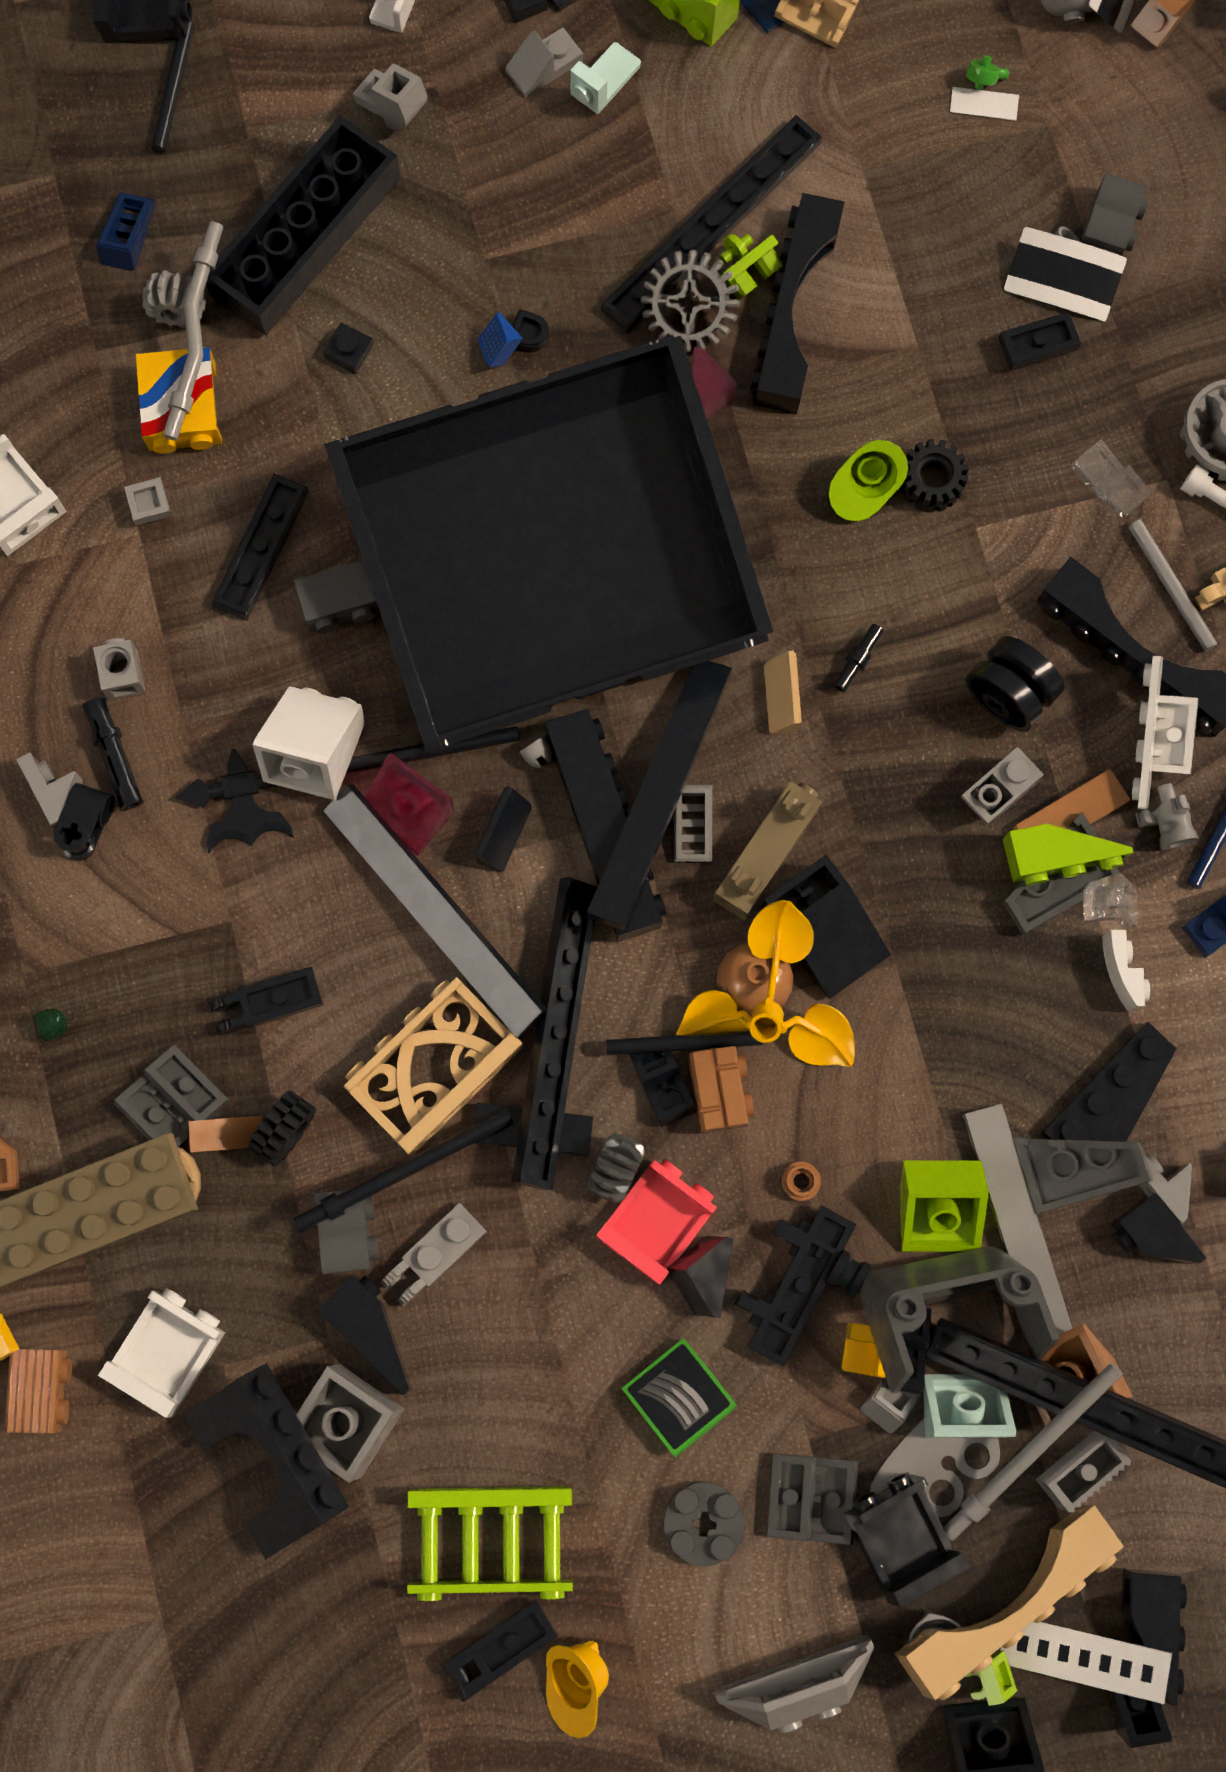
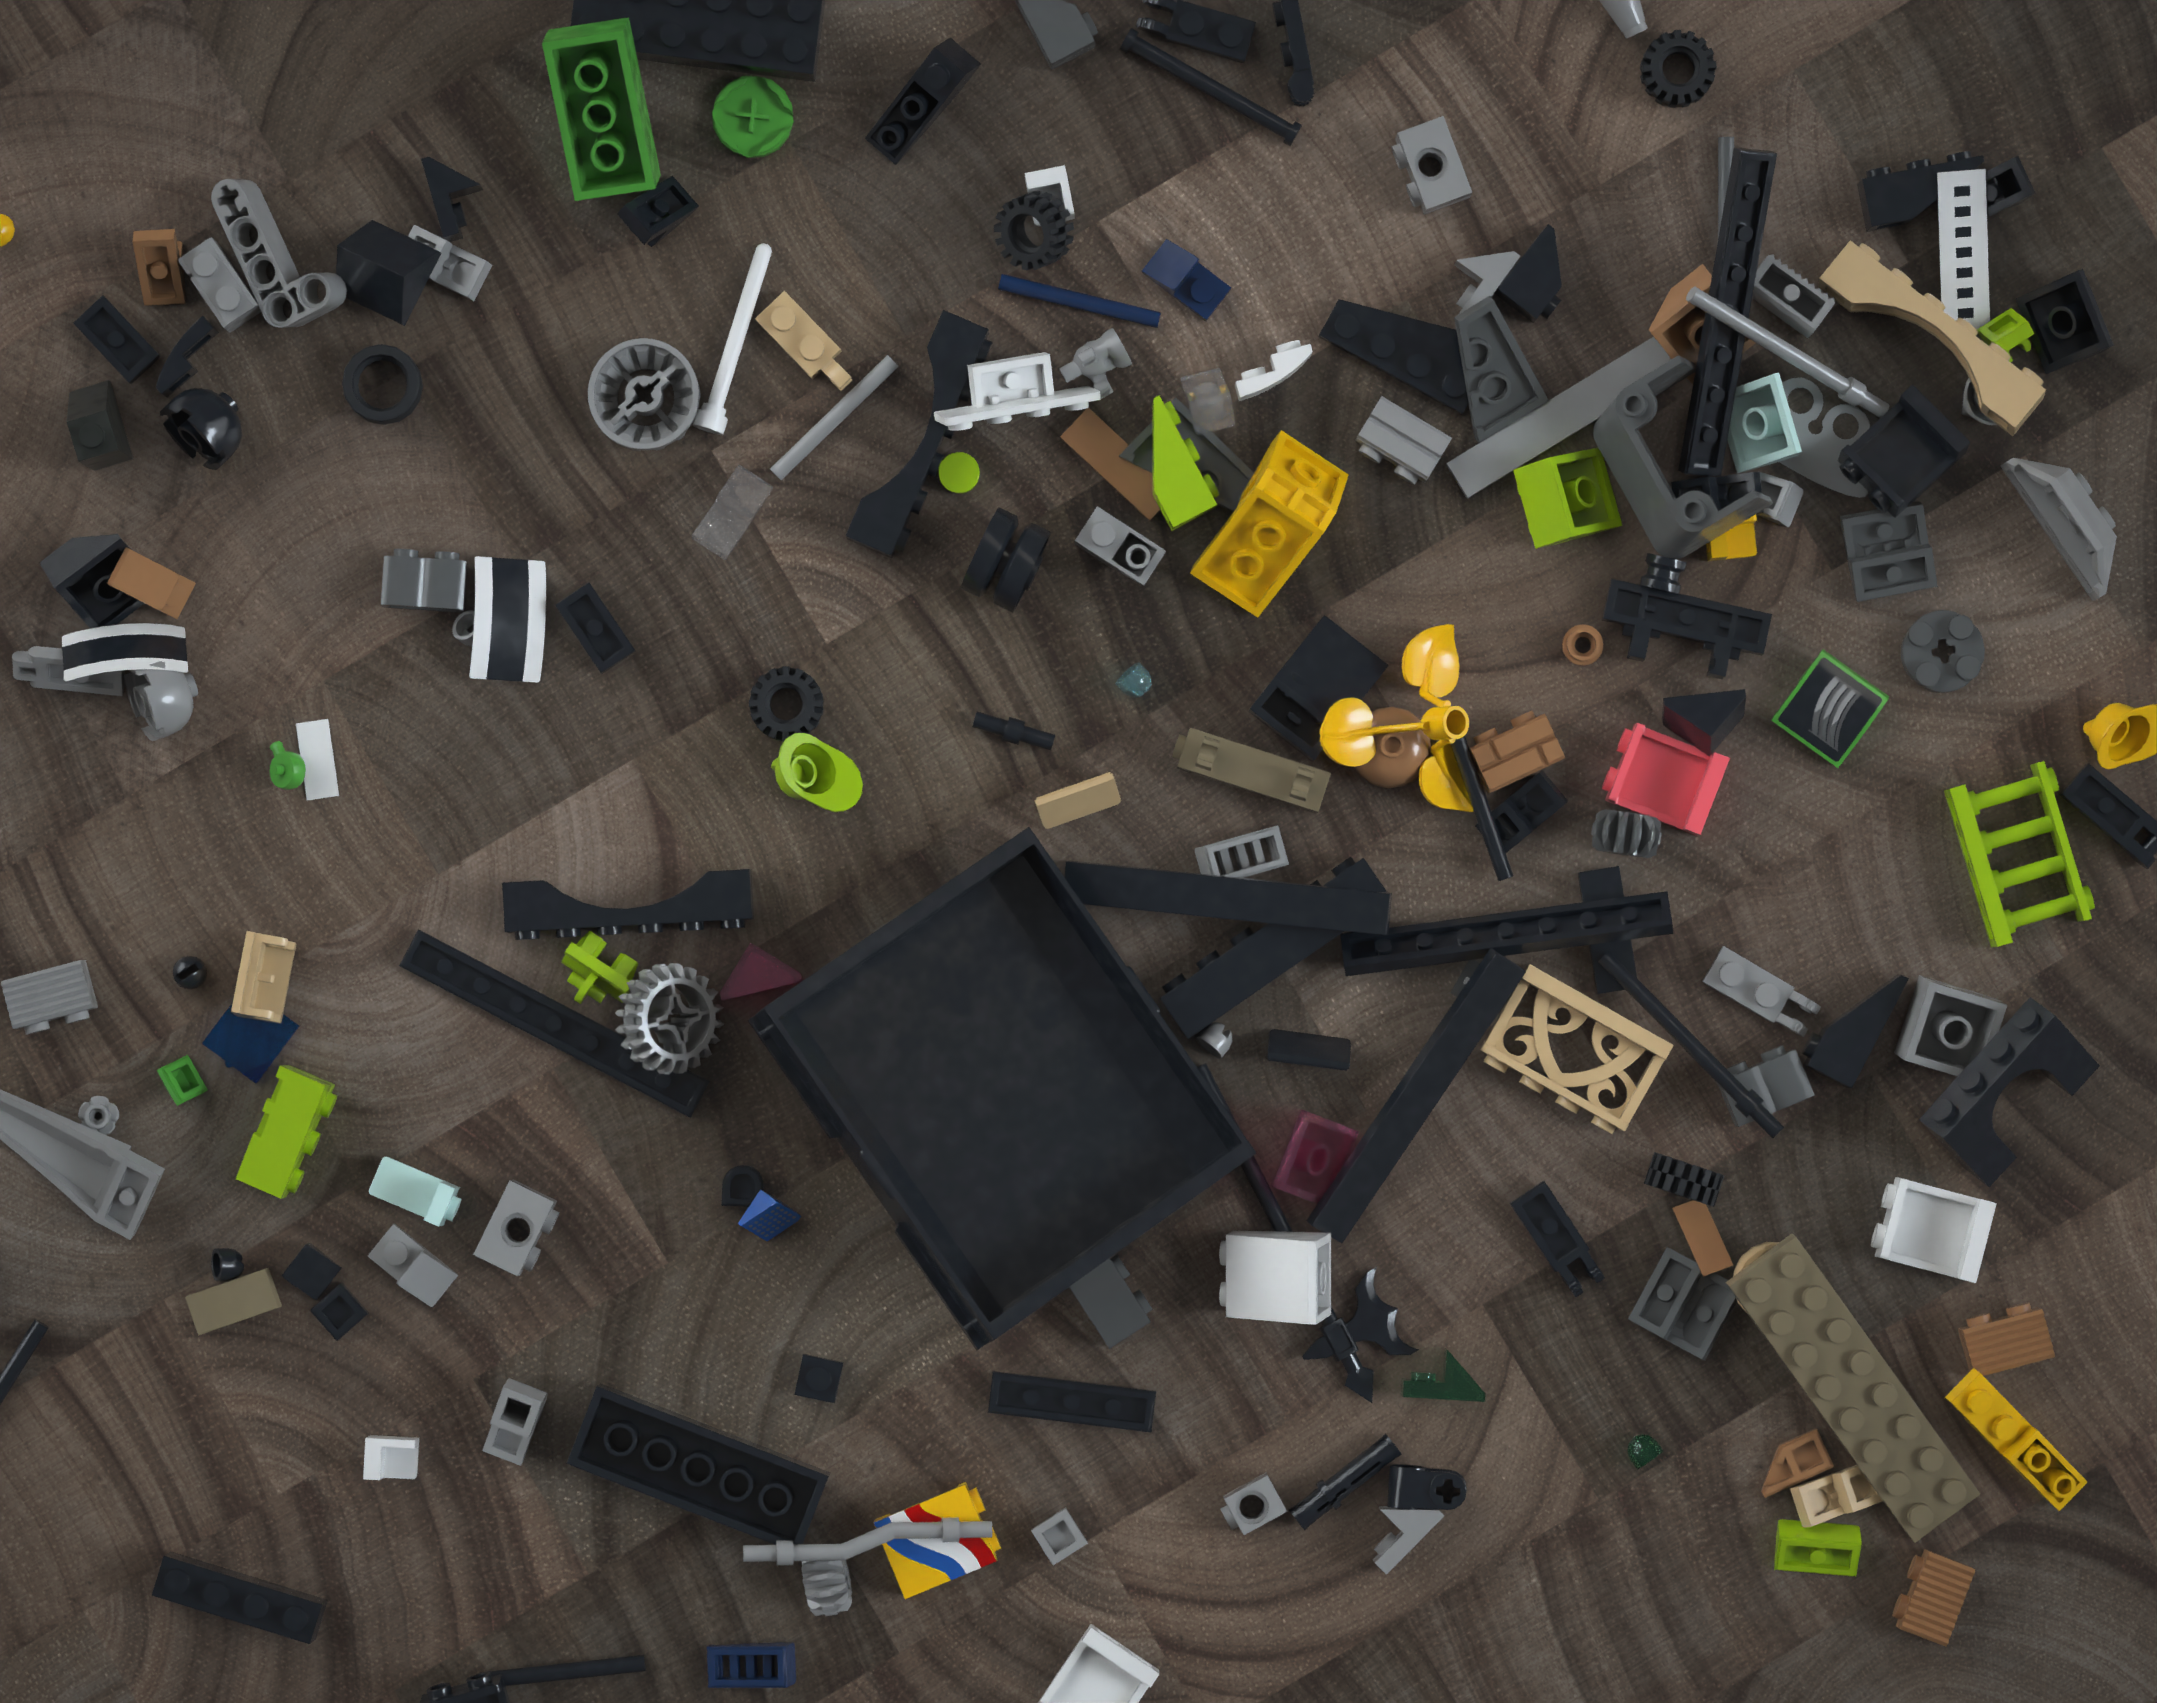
camera: 105 degrees left, 10 degrees up
(164, 871) = (1454, 1385): none -> clear green slope
(544, 125) = (497, 1244): none -> light grey brick
(874, 772) = (1134, 681): none -> clear light blue hinge
(988, 927) = (1273, 526): none -> yellow bracket
(1032, 1068) = (1402, 441): none -> light grey brick
(1098, 675) = (959, 473): none -> lime tile

